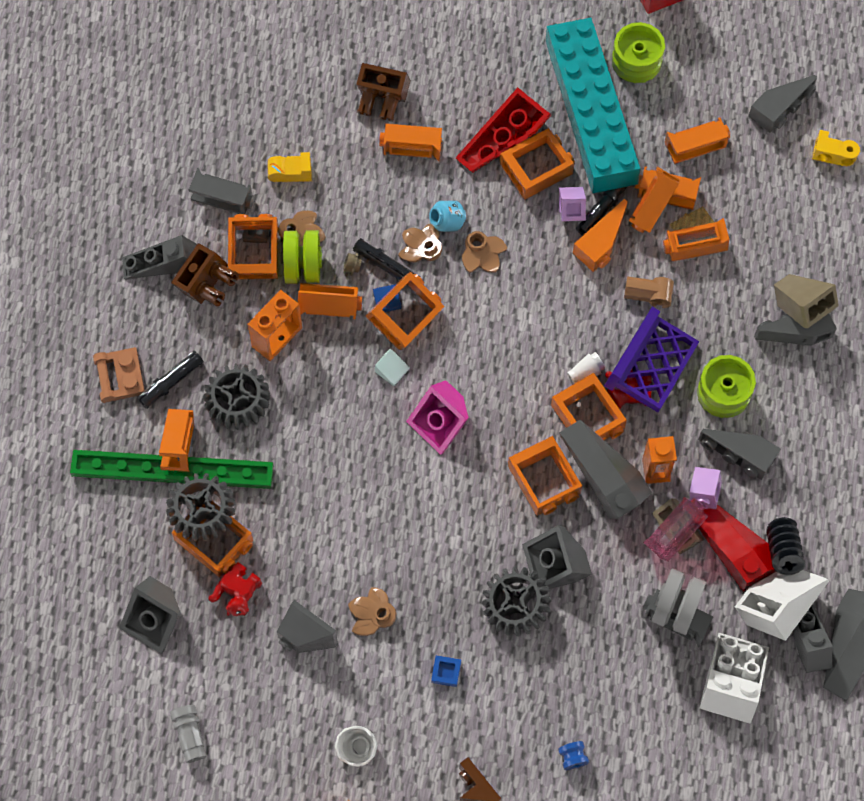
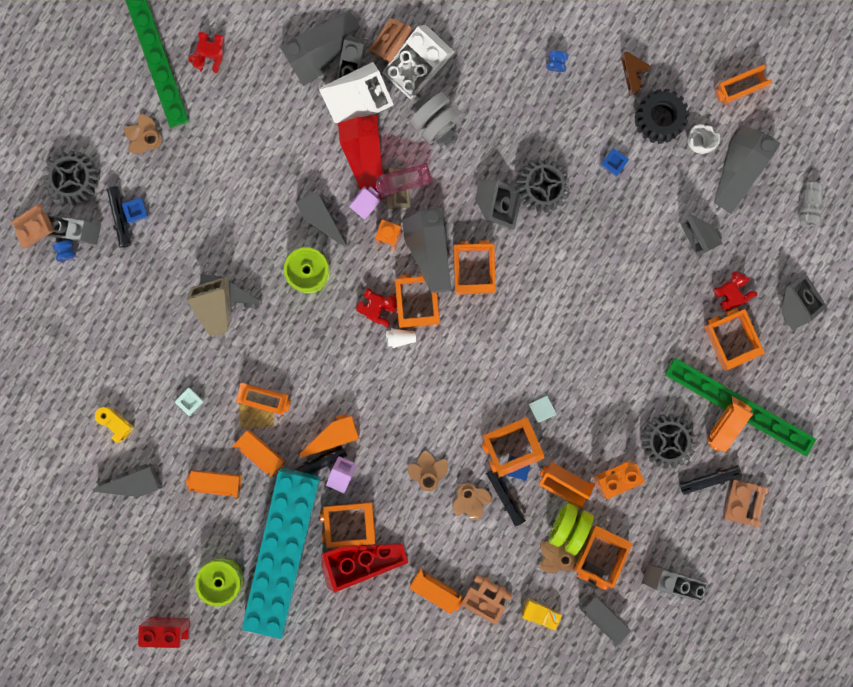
camera: 150 degrees left, 20 degrees up
(184, 496) = (753, 348): dark grey gear -> none
(200, 275) = (652, 553): reddish brown brick -> none
(291, 745) = (745, 161): none -> dark grey wedge
(352, 263) = (531, 509): dark tan plate -> none
(355, 152) = (483, 605): none -> nougat plate
(368, 611) = (647, 233): medium nougat plate -> none
(385, 83) = (430, 649): reddish brown brick -> none
(418, 725) = (668, 101): none -> black tyre
(439, 415) = (526, 351): dark pink slope -> none
(447, 216) = (441, 512): medium azure head -> none
(638, 346) = (363, 327): dark purple fence -> none
(654, 201) = (279, 443): orange window -> none
(655, 291) = (317, 374): medium nougat piece -> none
(771, 205) = (189, 401): none -> light aqua plate
(780, 683) = (390, 40): none -> nougat plate
(785, 546) = (334, 131): black piece -> none

